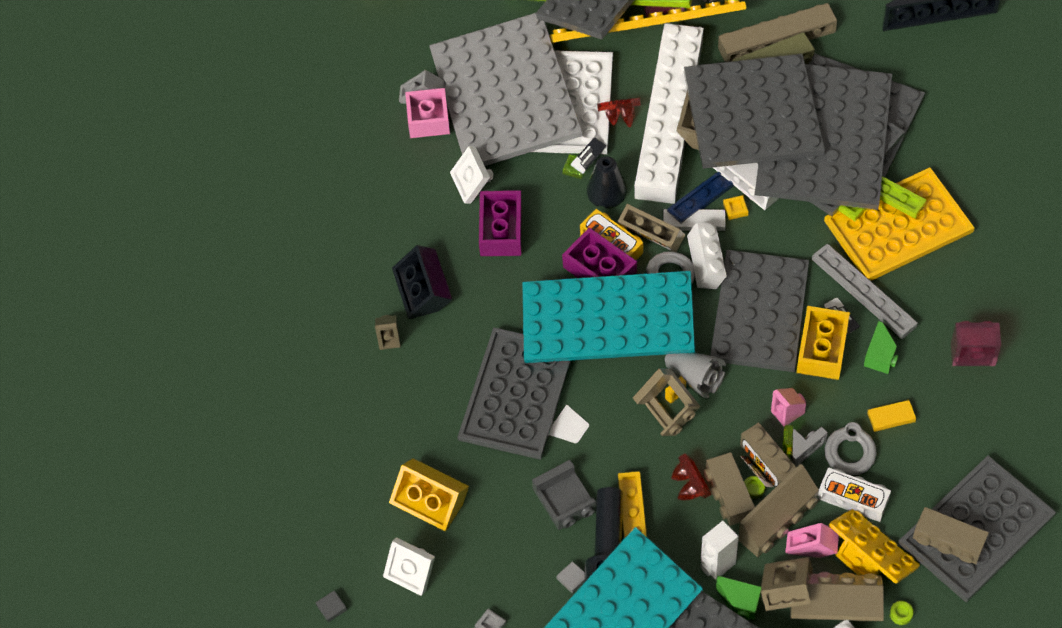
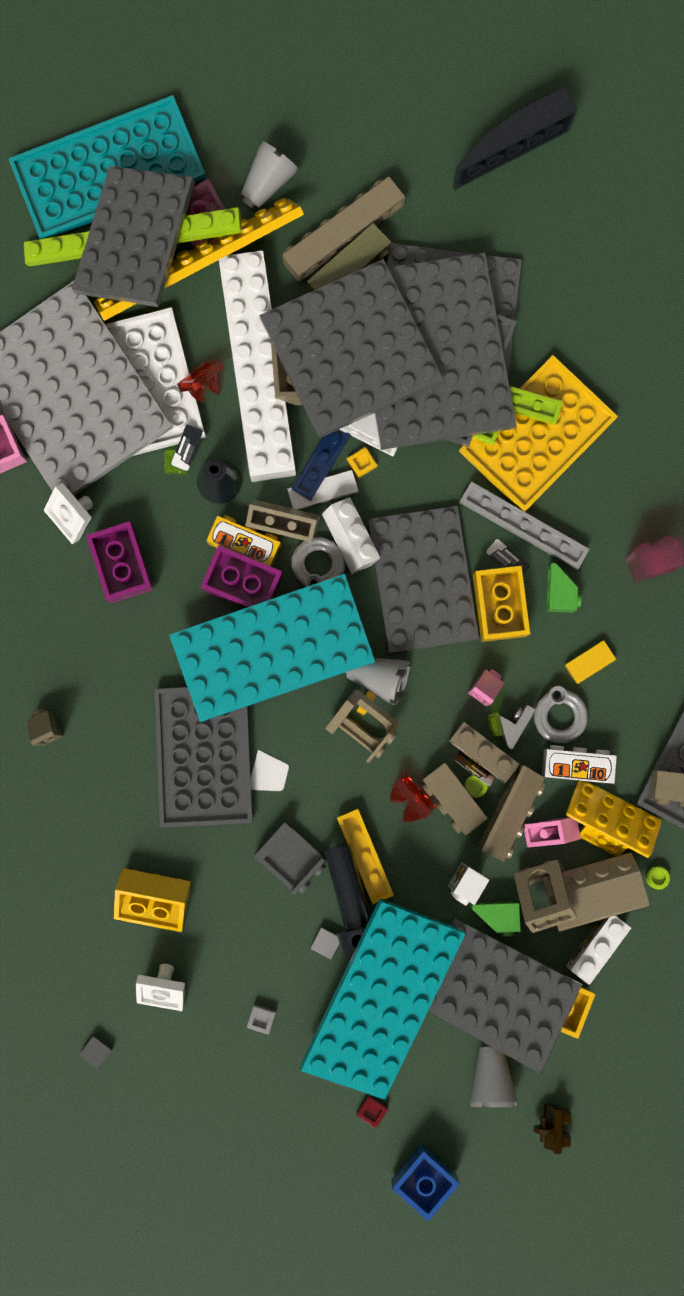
camera: 25 degrees left, 25 degrees up
(421, 282) = (60, 657): black slope -> none

